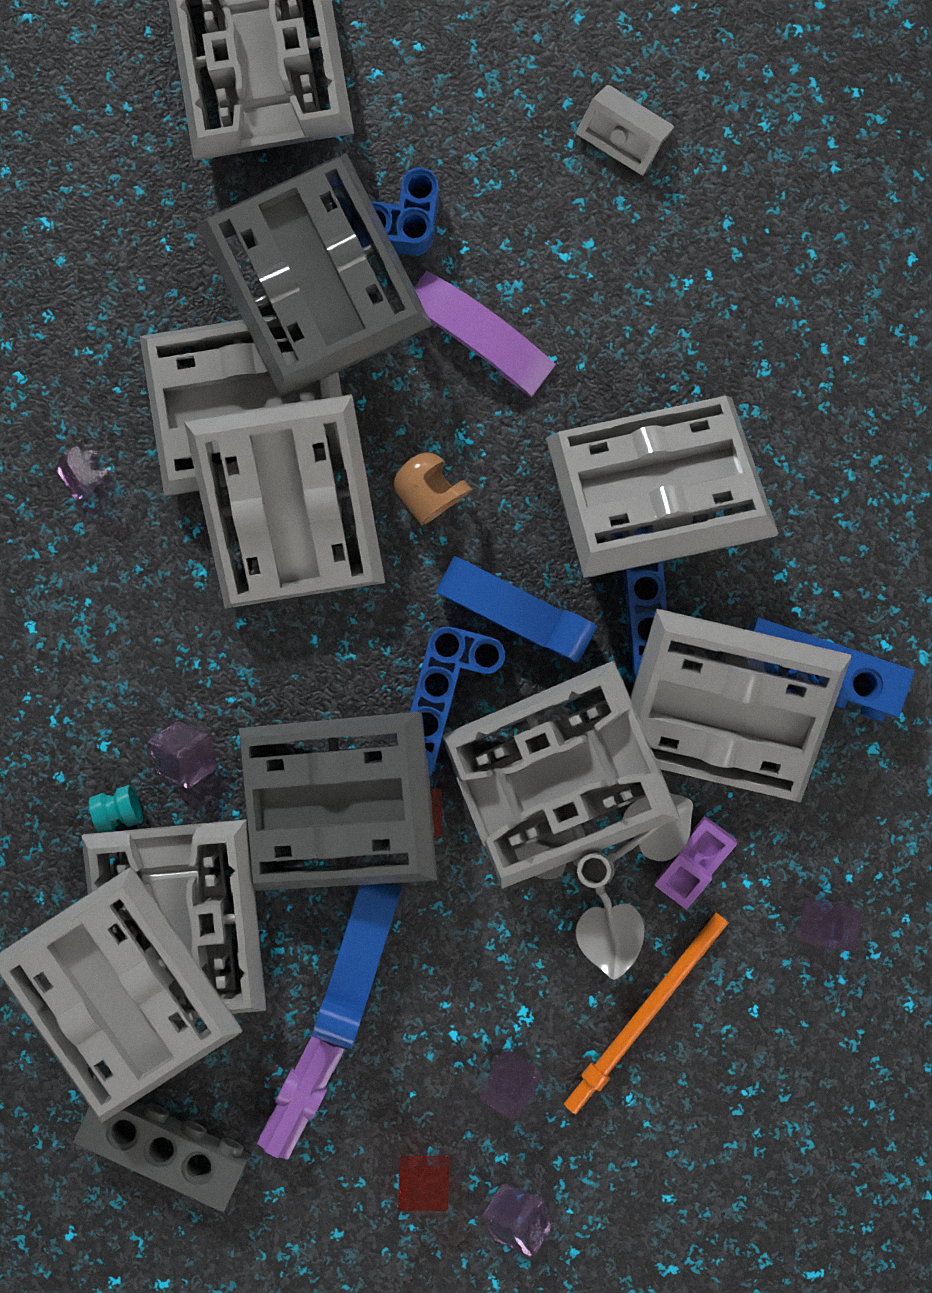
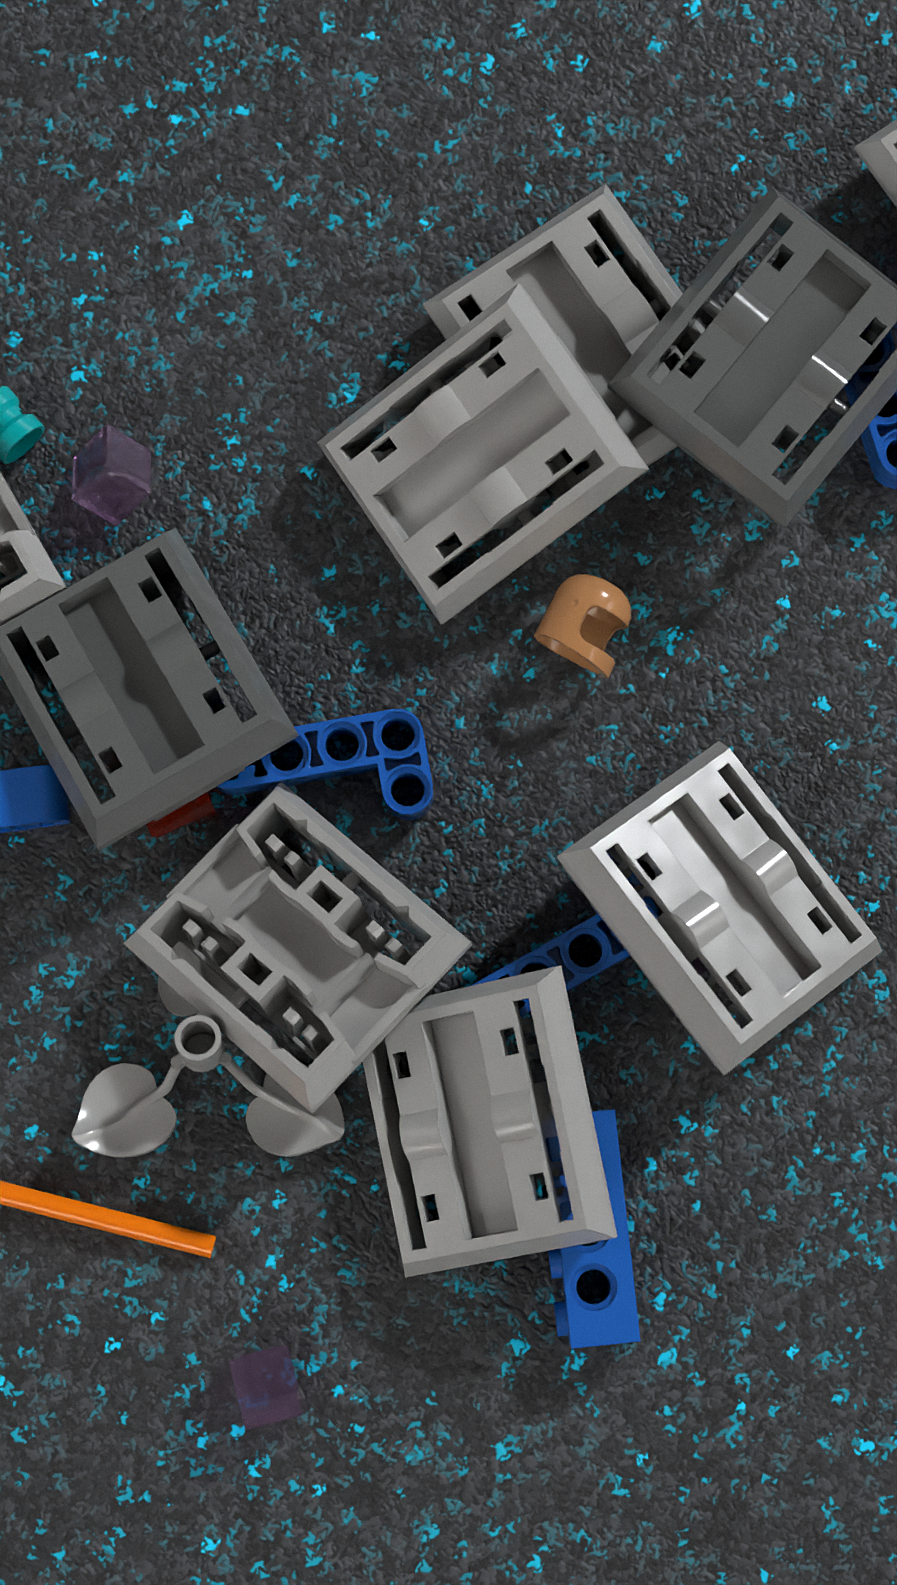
camera: 65 degrees right, 5 degrees down
(78, 474) = (400, 187): clear purple tile -> none
(484, 333) = (812, 600): medium lavender slope -> none
(516, 610) = (481, 802): blue beam -> none
(693, 868) = (268, 1180): medium lavender slope -> none

